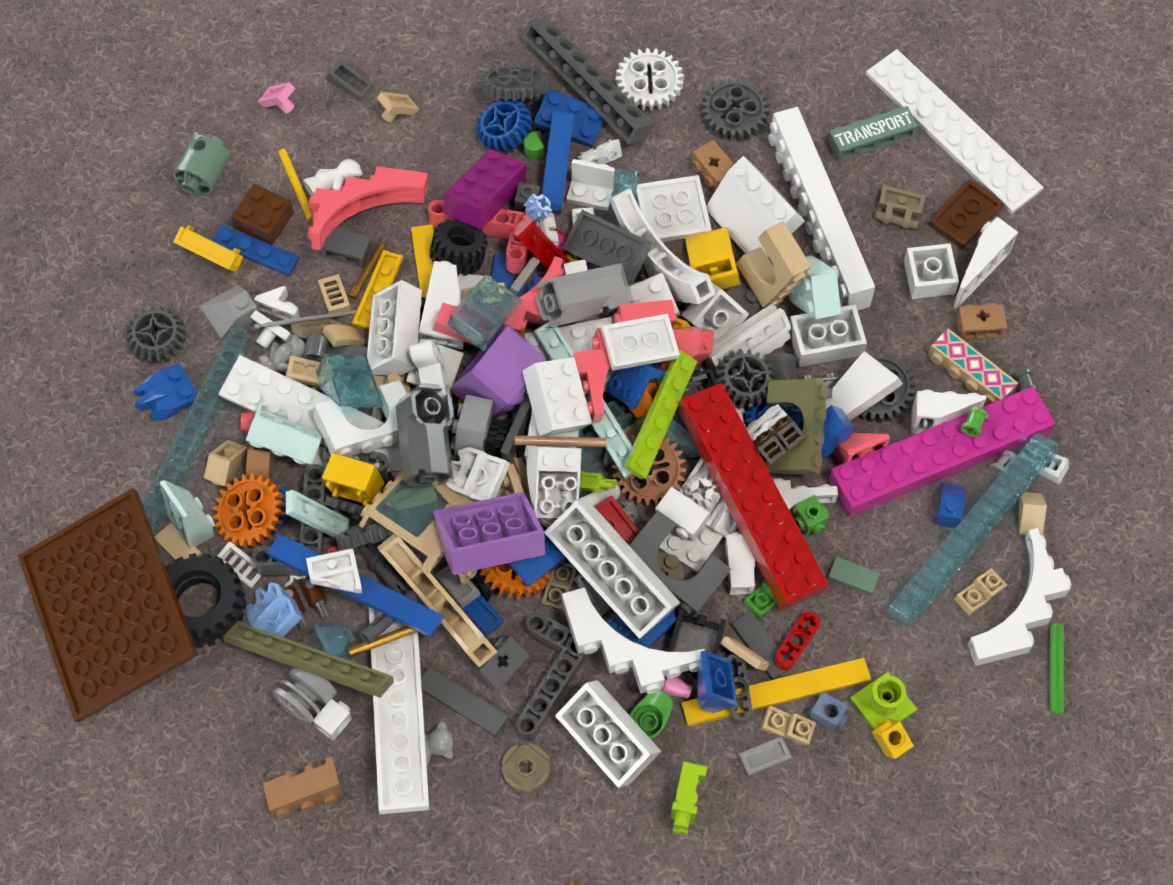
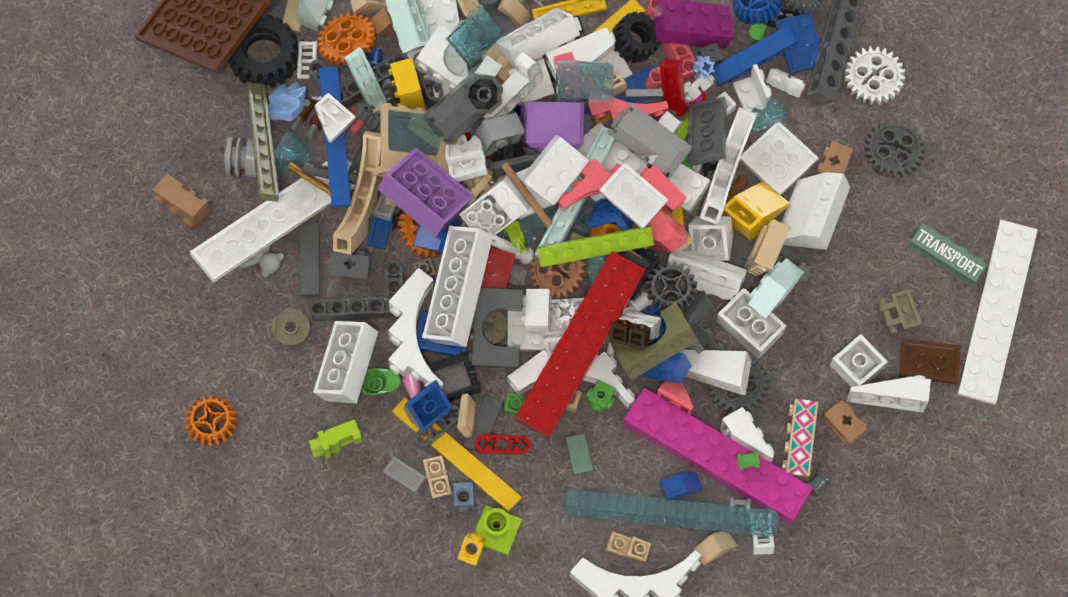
camera: 55 degrees right, 5 degrees up
(332, 719) = (241, 187): white brick -> none
(820, 207) = (850, 256): white brick -> none

